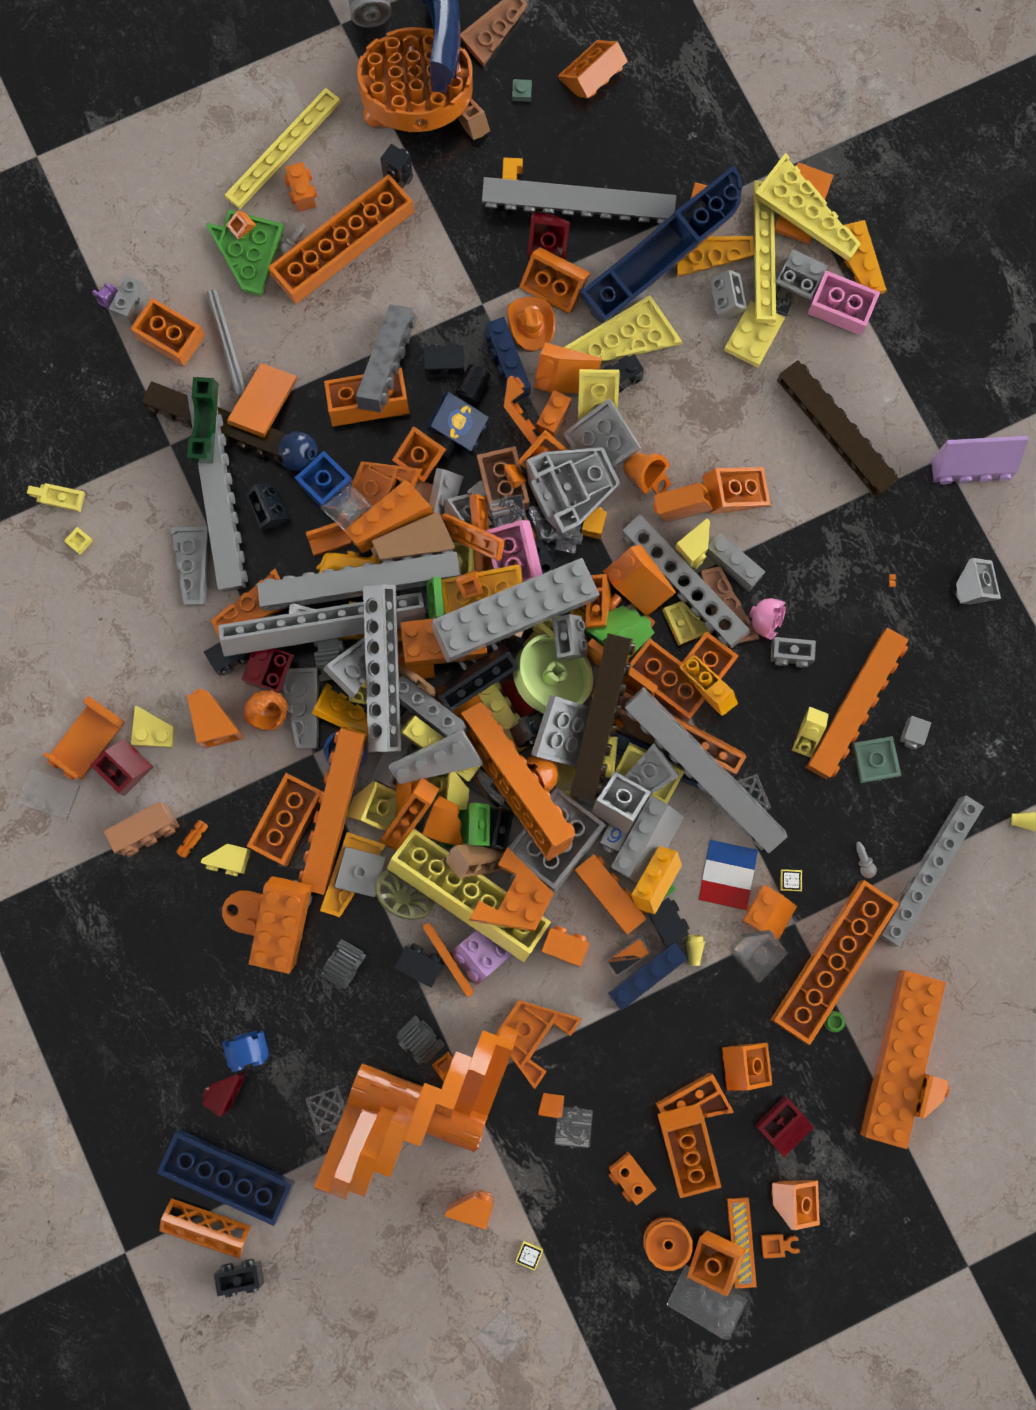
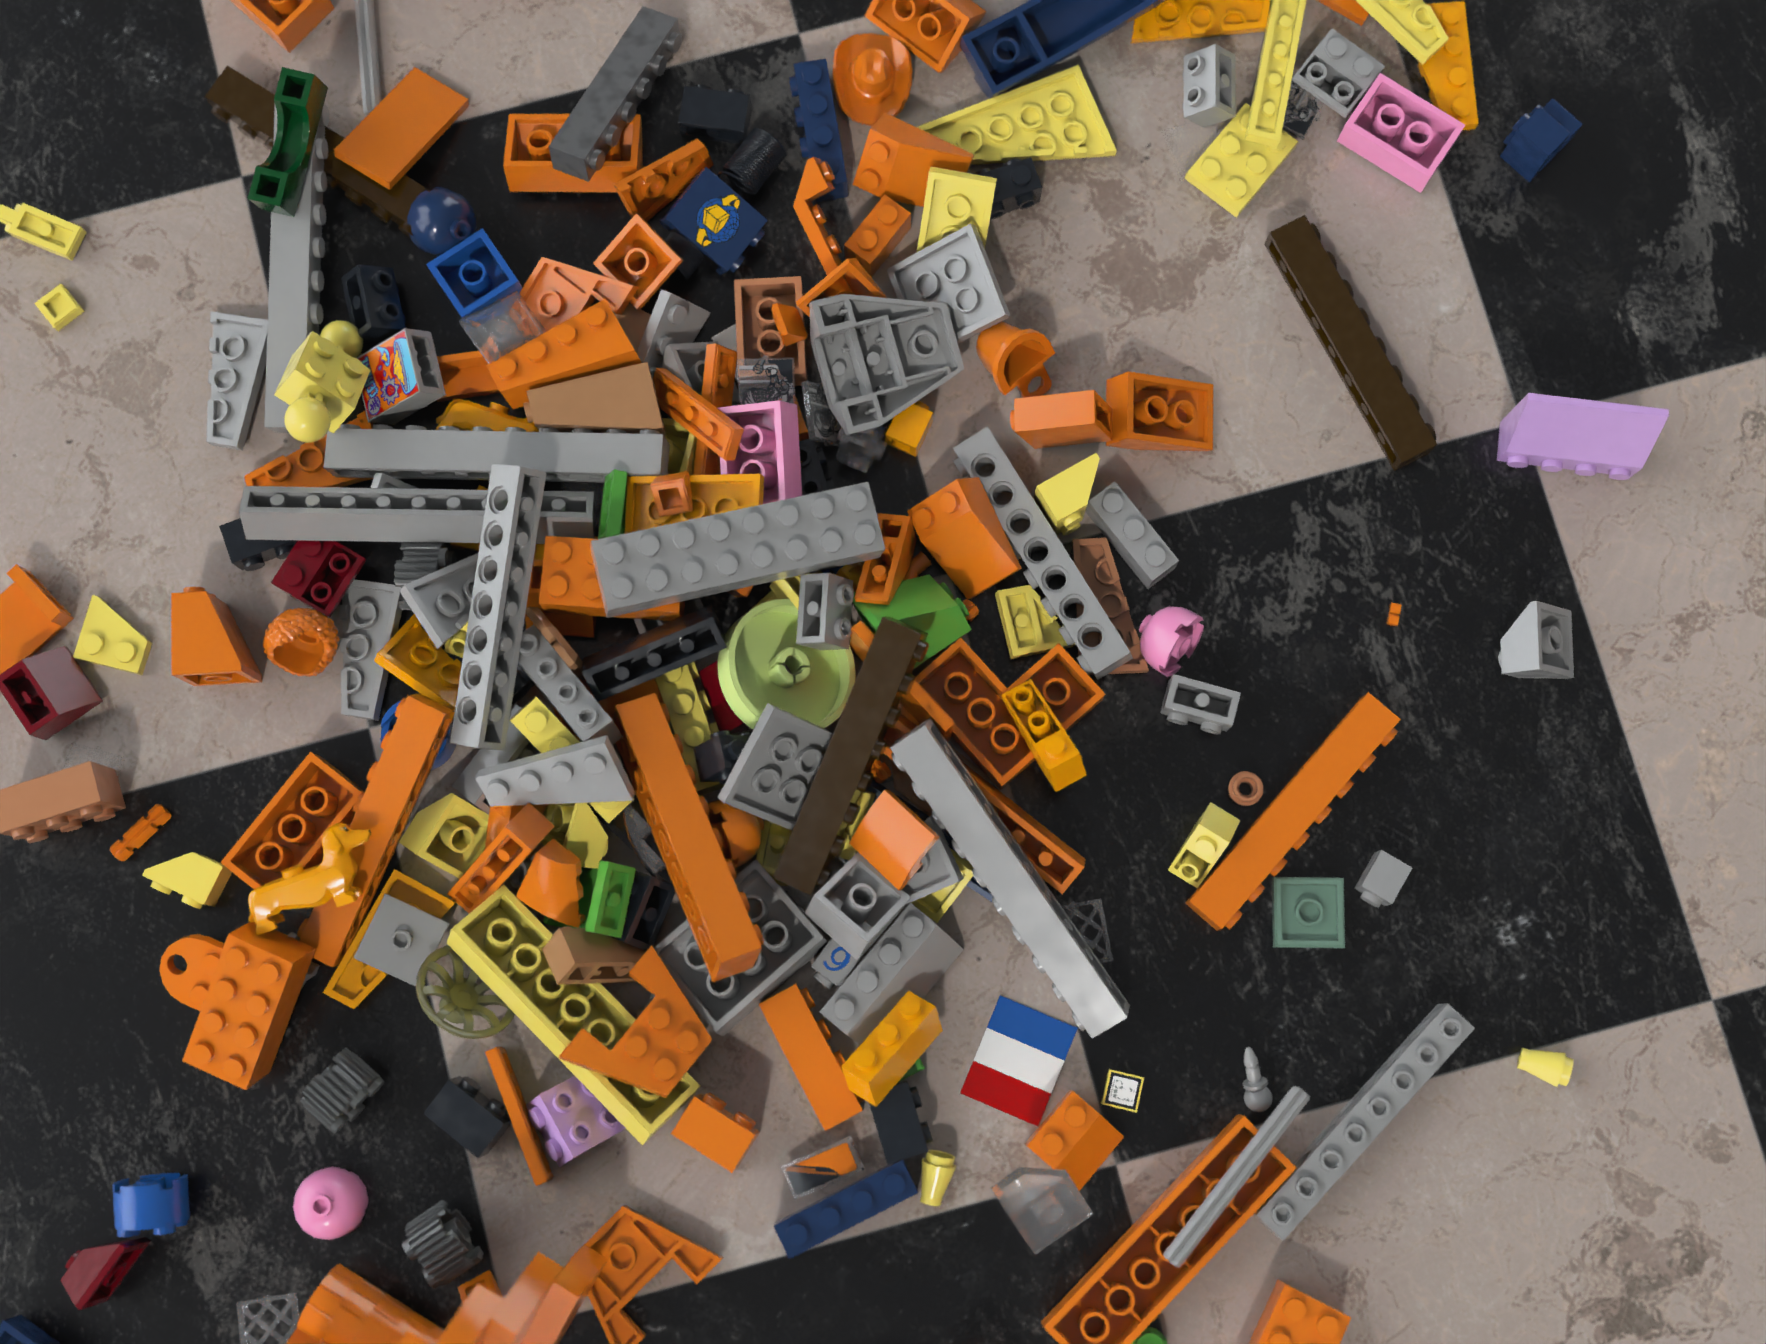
camera: 15 degrees right, 0 degrees up
(250, 556) = (323, 381): none -> light yellow brick
(292, 546) = (401, 377): none -> brick
(305, 848) = (313, 885): none -> light orange animal
(348, 1031) = (330, 1203): none -> bright pink cylinder
(421, 405) = (662, 180): none -> orange wing
(635, 760) = (893, 839): none -> orange slope
(833, 695) = (1255, 784): none -> nougat plate
(866, 914) = (1236, 1176): none -> light grey axle
(922, 292) = (1539, 138): none -> dark blue brick

